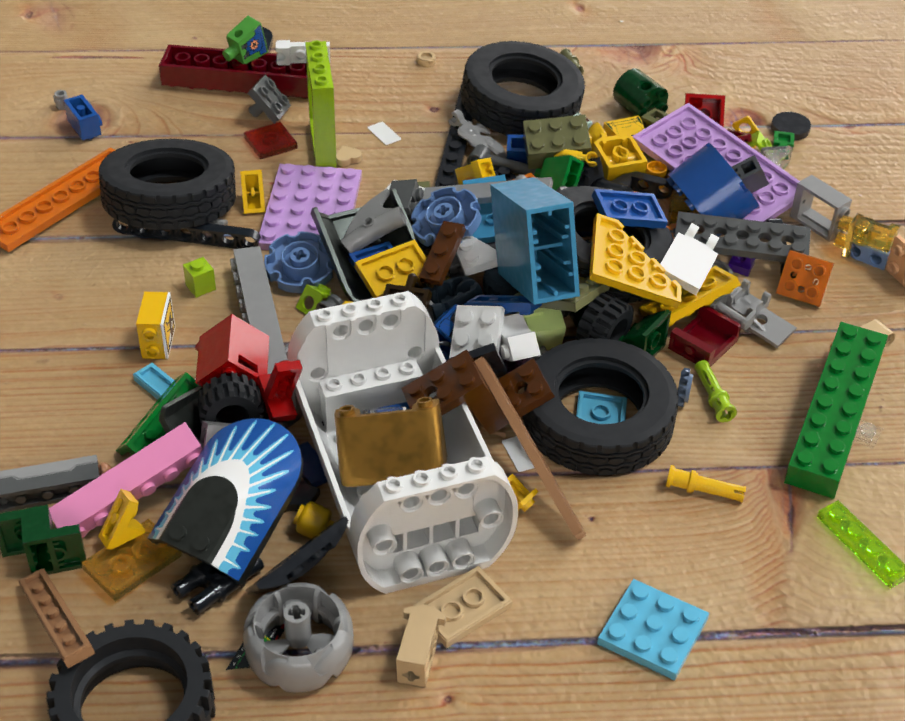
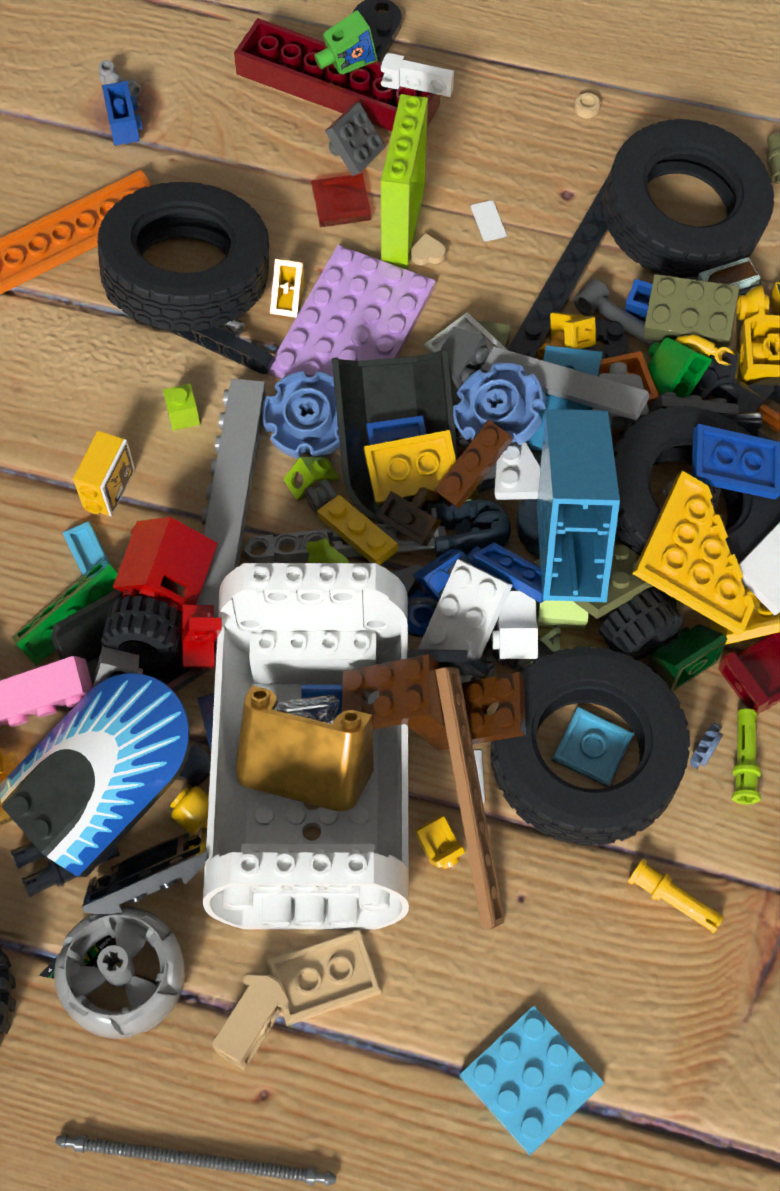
camera: 20 degrees right, 20 degrees up
(372, 223) = (406, 389): light grey pin -> none
(472, 134) = (594, 255): light grey piece -> none

